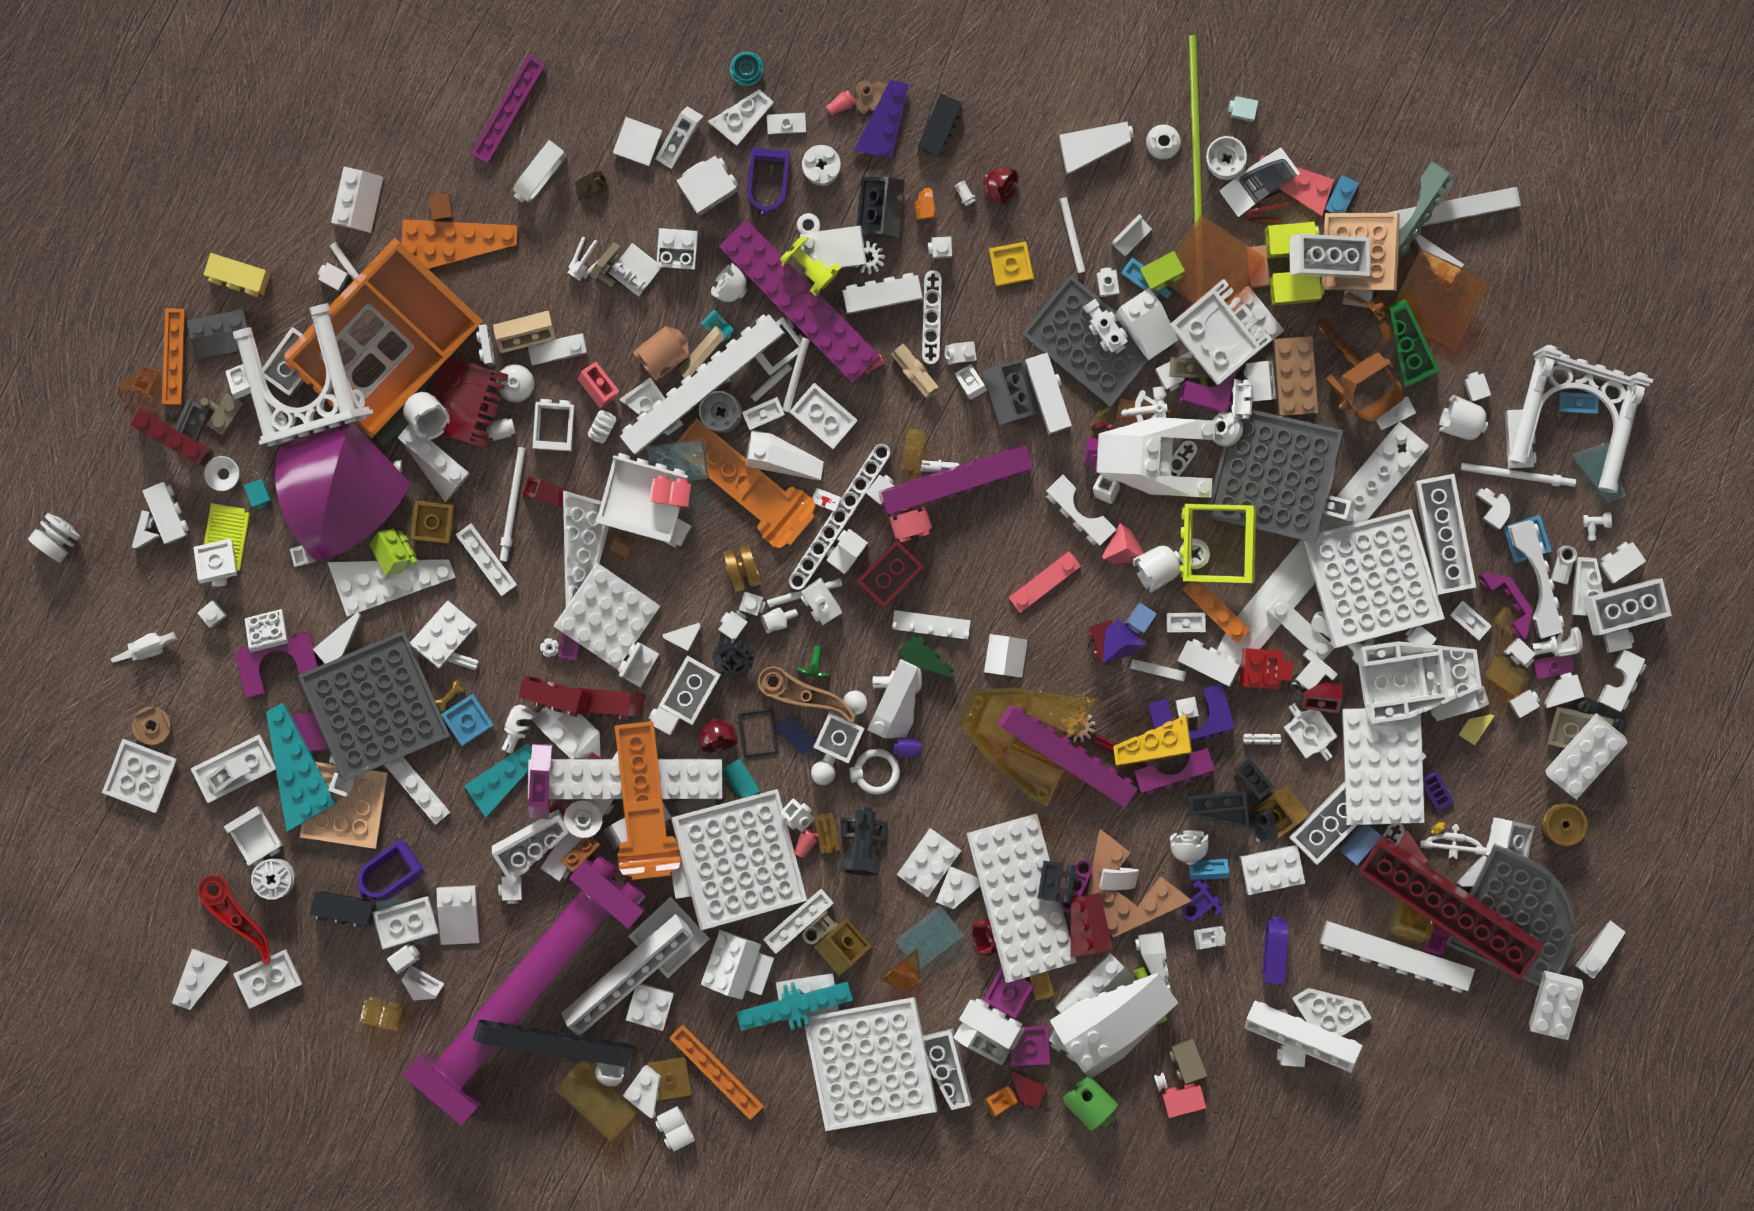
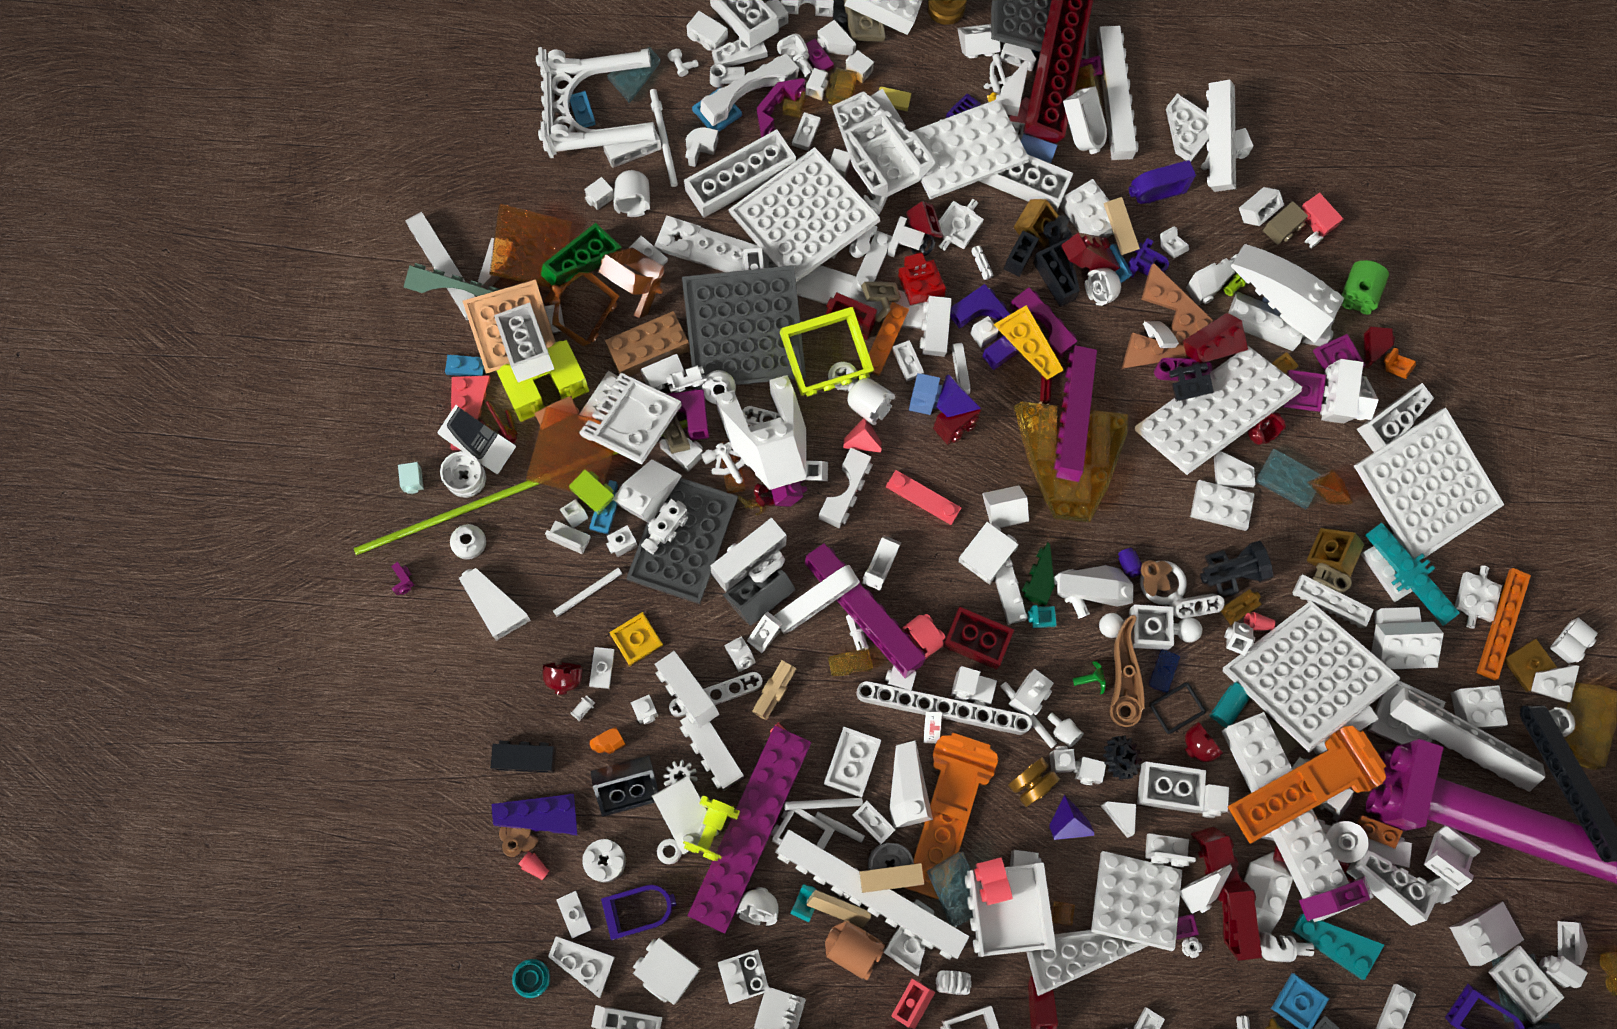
camera: 120 degrees left, 15 degrees down
(532, 910) = (1451, 857): none -> white panel
(591, 676) = (1202, 892): none -> white slope
(696, 588) = (1069, 822): none -> dark purple slope
(708, 405) = (891, 878): none -> tan tile
(750, 1061) = (1478, 597): none -> white plate
(836, 796) = (1204, 609): none -> white beam
(882, 766) = (1157, 578): none -> medium nougat plate
(888, 643) = (1042, 616): none -> teal bracket
(944, 290) = (687, 690): none -> white brick
(967, 618) = (988, 552): none -> white panel
(981, 438) = (817, 598): none -> white beam
(994, 514) = (881, 562): none -> white arch
(995, 223) = (602, 668): none -> white plate
(1030, 406) = (767, 566): none -> white plate
(1152, 72) = (403, 574): none -> magenta bracket
(1153, 249) = (574, 513): none -> white slope
(1214, 1043) = (1261, 206): none -> white brick
(1224, 844) = (1090, 252): none -> dark red wedge
(1240, 599) = (865, 314): none -> dark red panel
(1242, 887) = (1121, 226): none -> tan tile
(1262, 621) = (881, 292): none -> dark tan plate
(1385, 890) = (1098, 132): none -> white window
(1431, 844) = (1012, 91): none -> white slope

